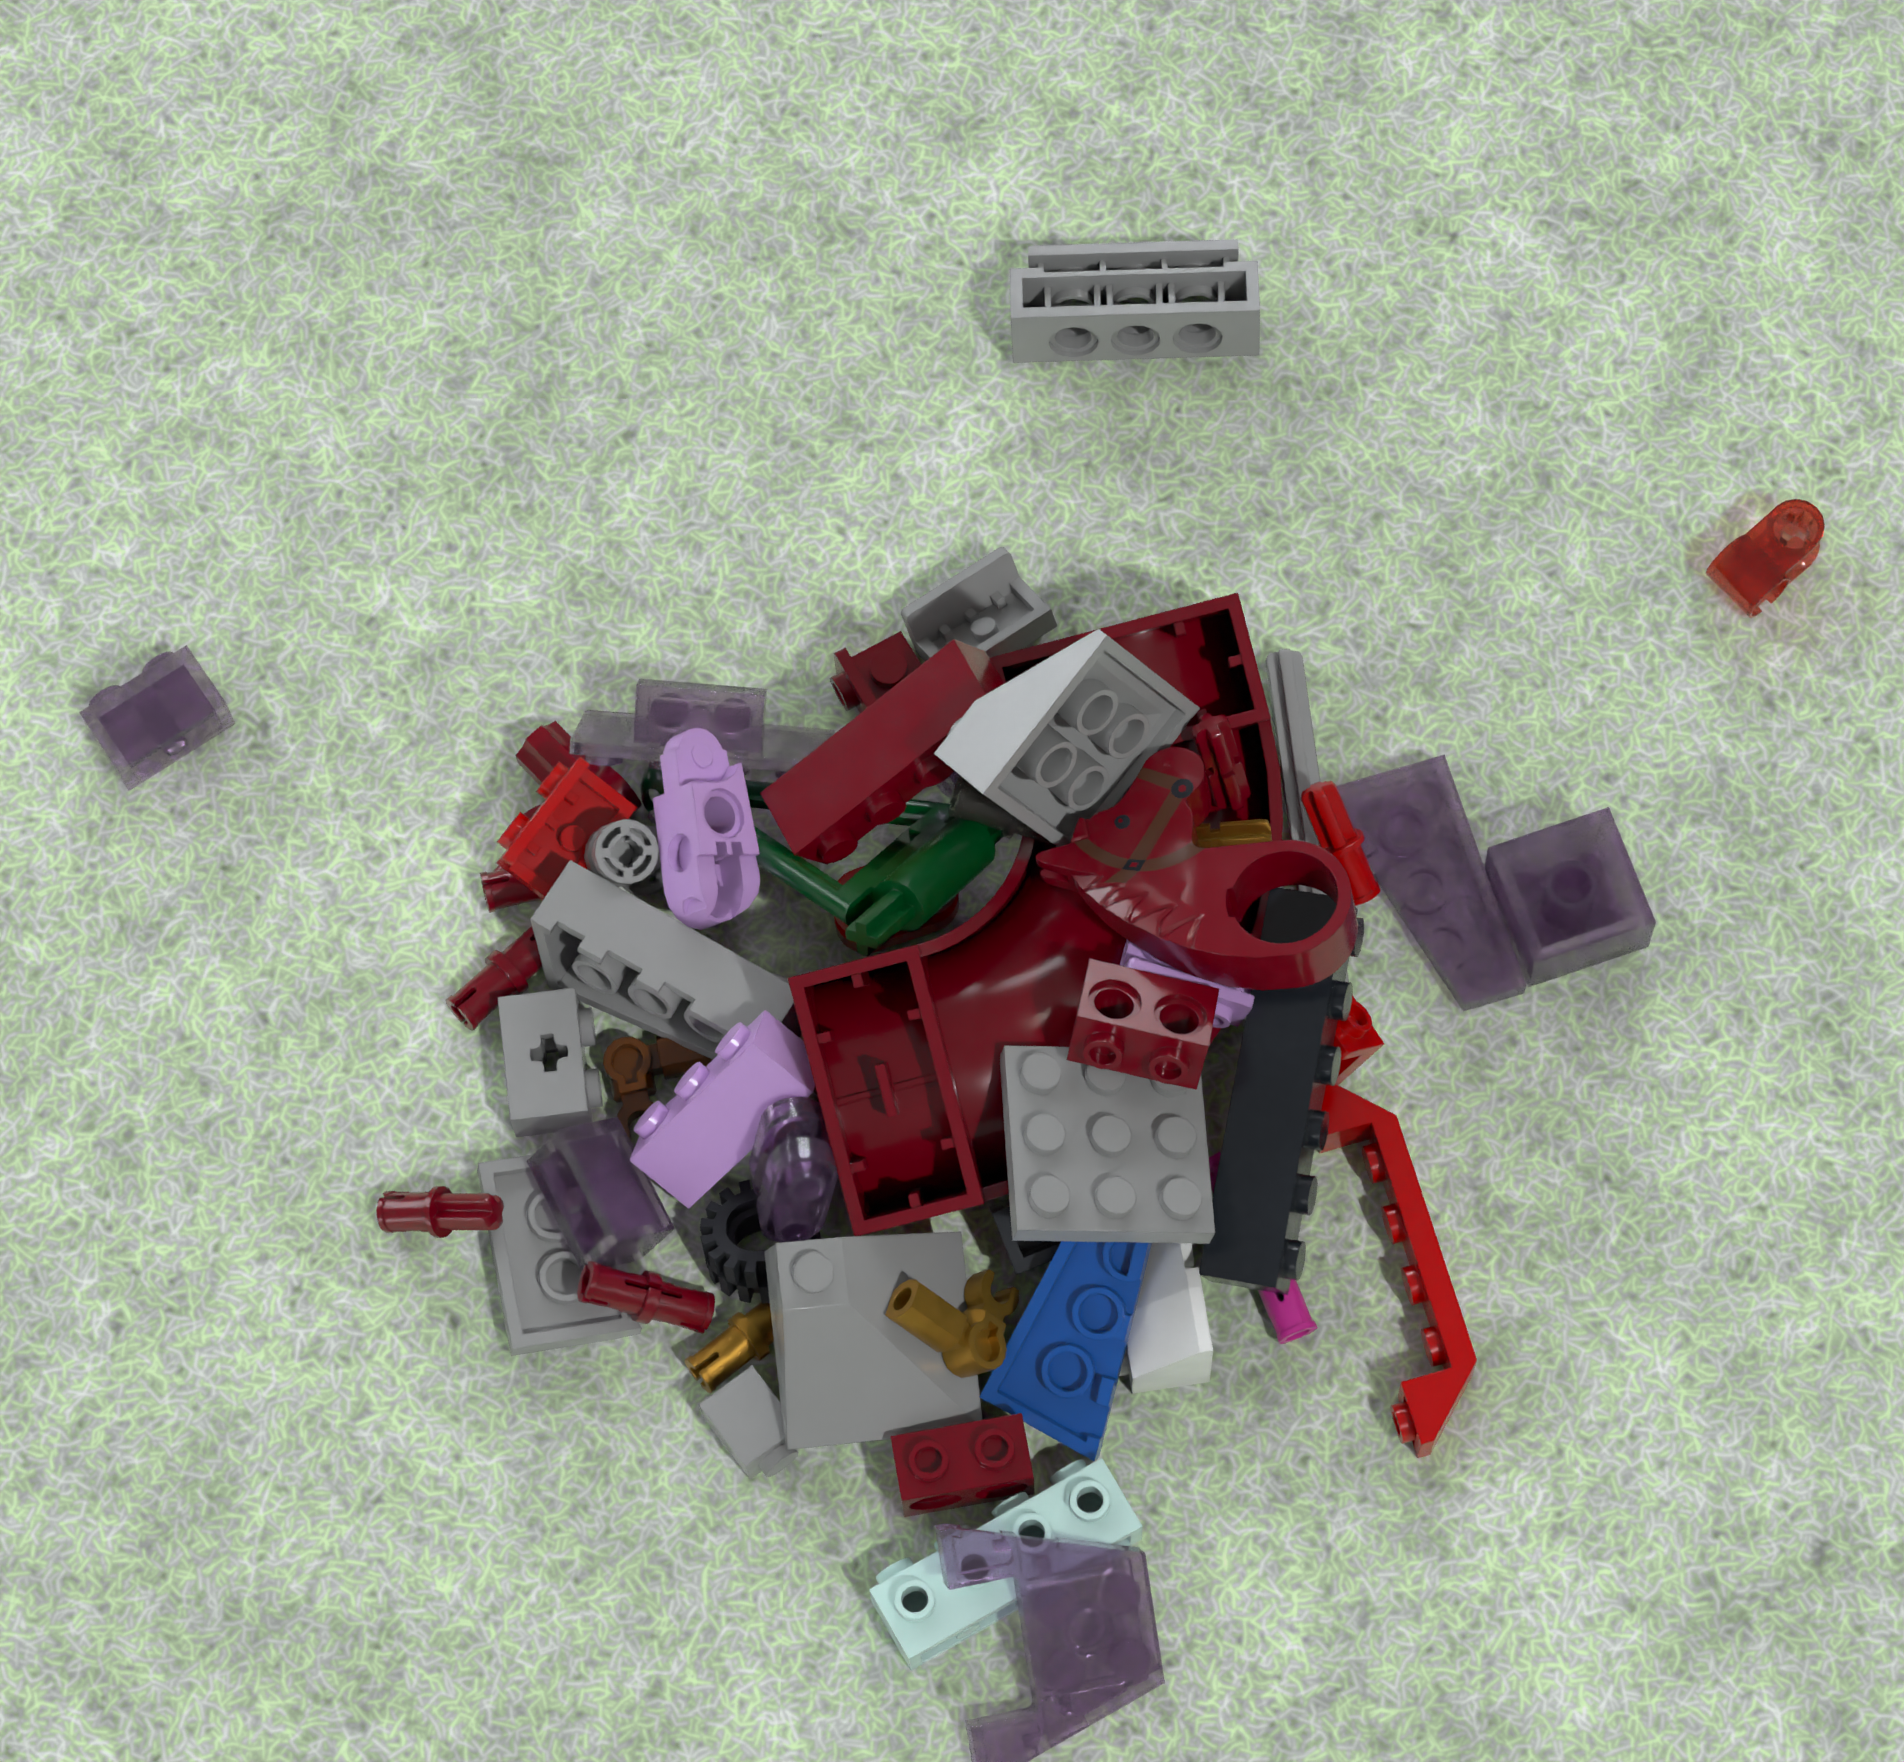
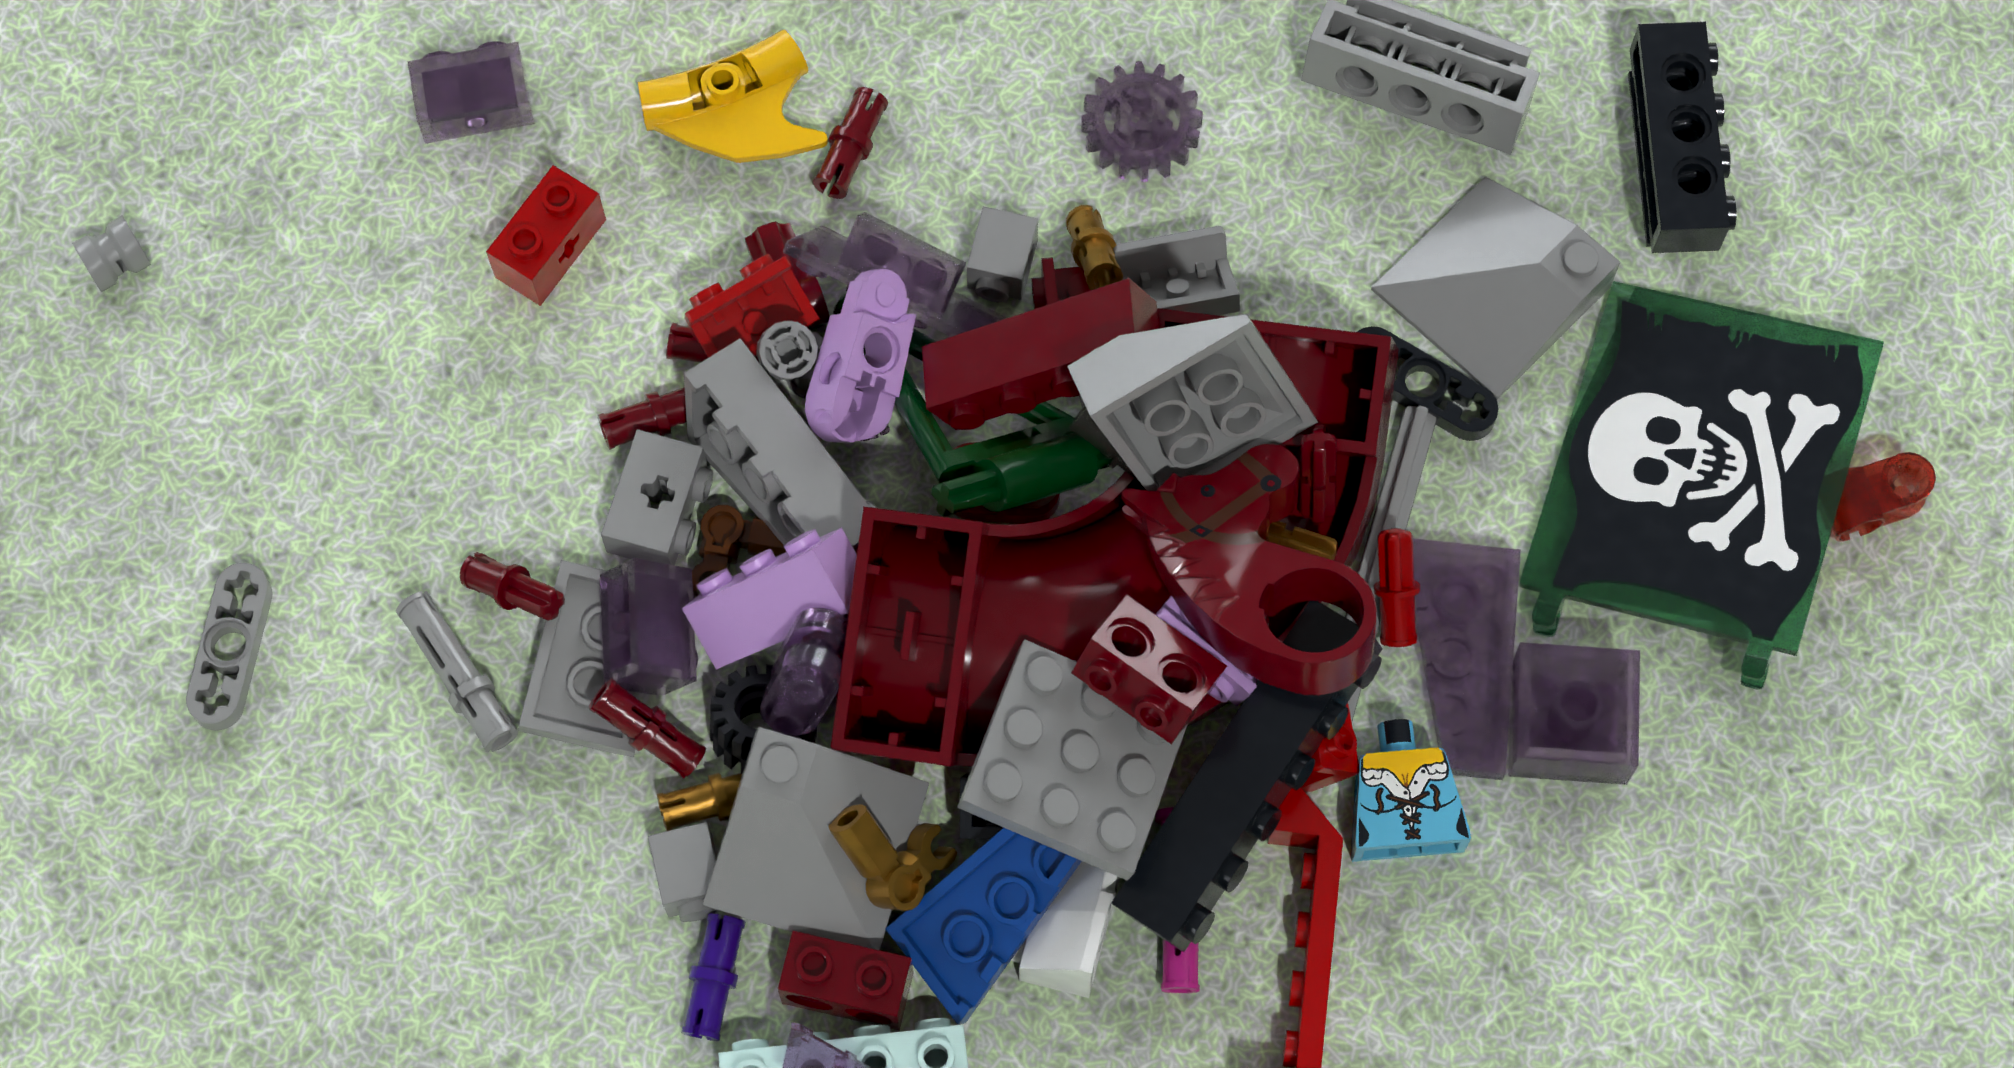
camera: 20 degrees right, 0 degrees up
(195, 1436) = (204, 683): none -> light grey beam
(307, 835) = (546, 235): none -> red brick
(439, 620) = (734, 104): none -> yellow pin
(439, 1334) = (468, 689): none -> light grey pin
(578, 612) = (850, 142): none -> dark red pin
(789, 665) = (1002, 254): none -> light grey brick
(825, 1519) = (713, 977): none -> dark purple pin
(852, 450) = (1143, 143): none -> clear purple gear
(882, 623) = (1093, 247): none -> pearl gold pin
(1291, 609) = (1465, 391): none -> black beam
(1302, 492) = (1497, 283): none -> light grey slope
(1423, 272) = (1679, 138): none -> black brick
(1439, 1052) = (1406, 800): none -> torso
(1588, 601) = (1702, 471): none -> flag

